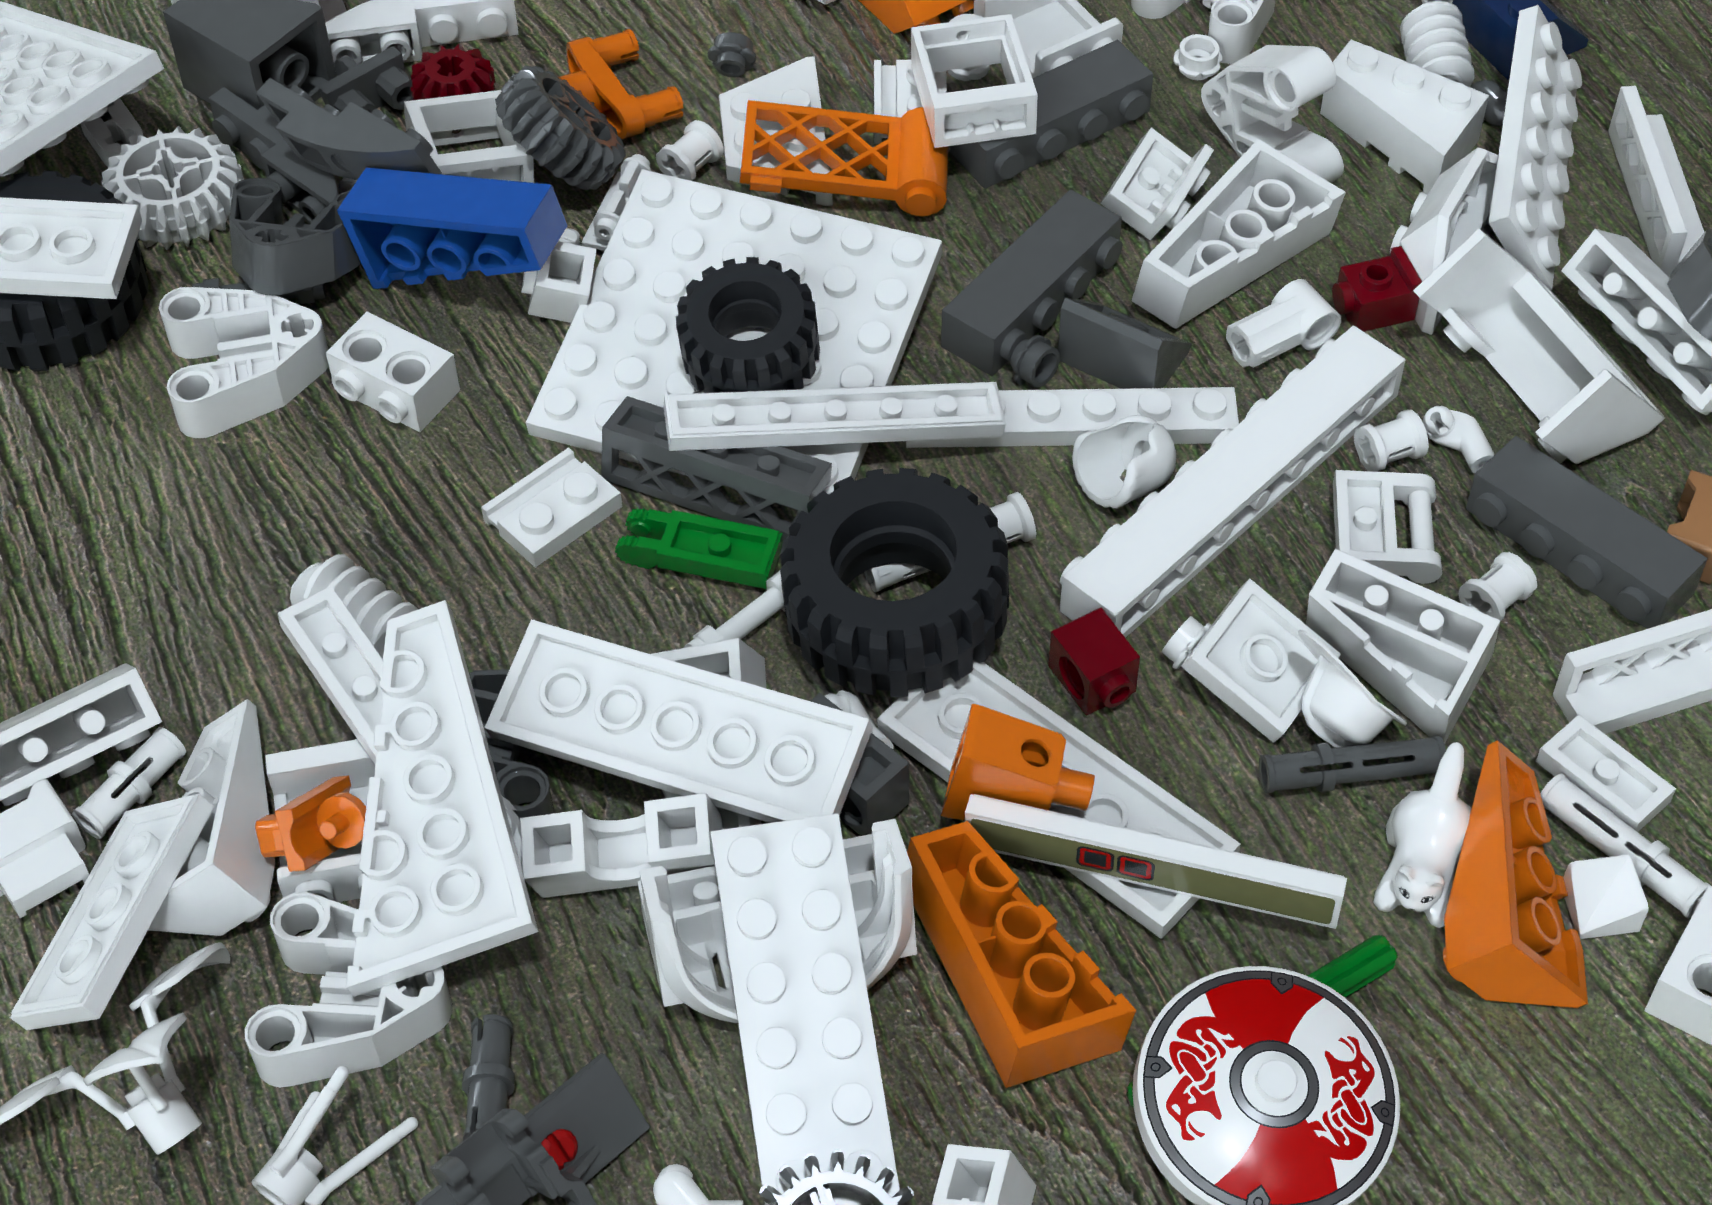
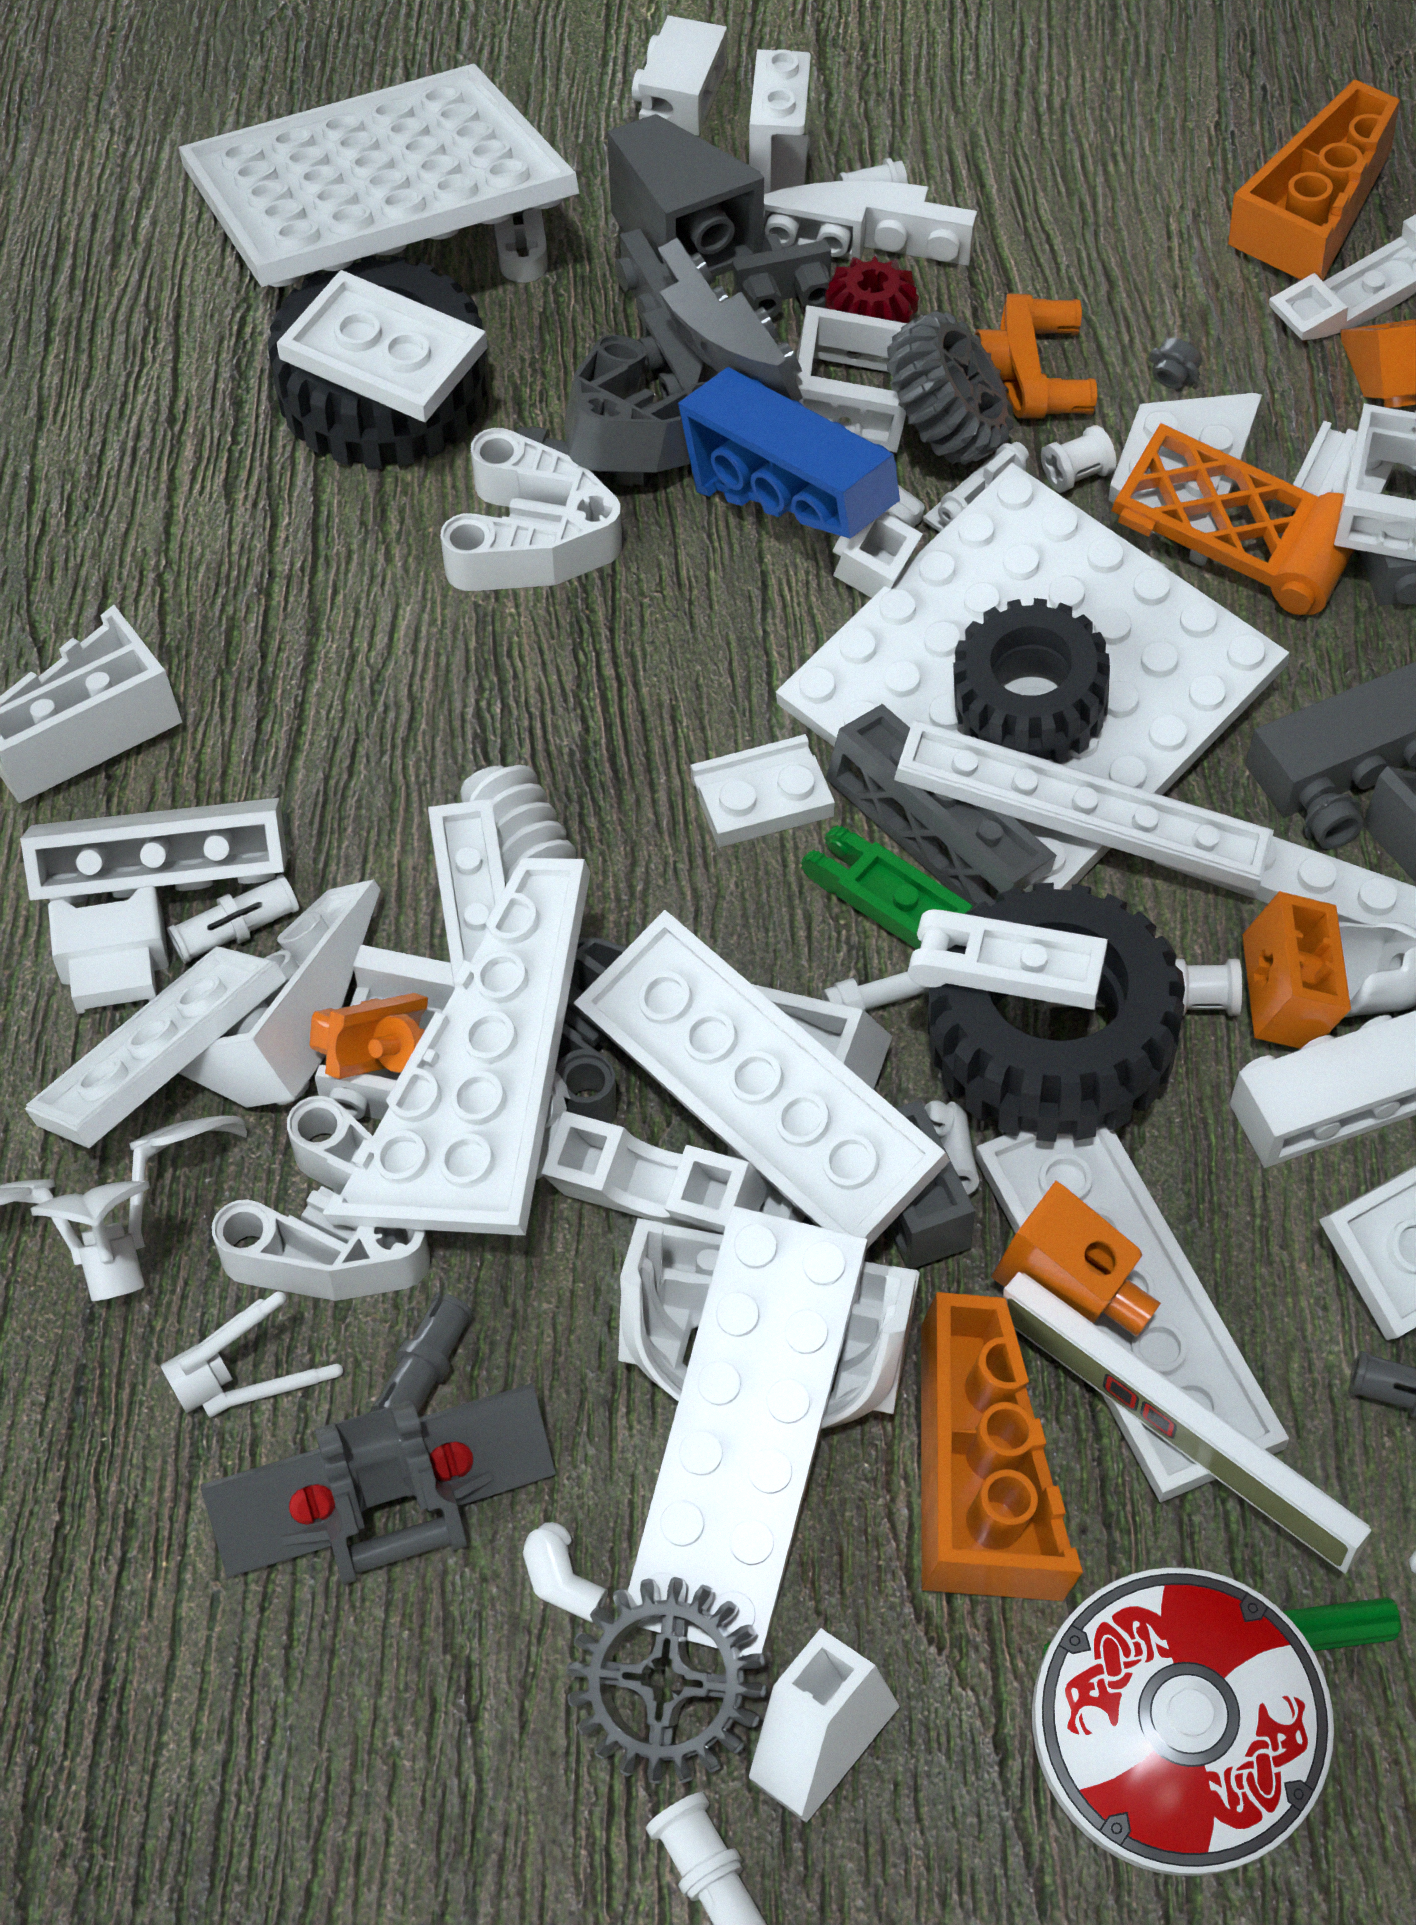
camera: 25 degrees right, 5 degrees up
(178, 184) = (546, 315): white gear -> none
(393, 372) = (669, 590): white brick -> none
(846, 545) = (1008, 958): none -> white plate
(1066, 483) = (1295, 970): none -> orange brick
(1094, 662) = (1233, 1176): dark red brick -> none
(1184, 641) = (1342, 1191): white plate -> none

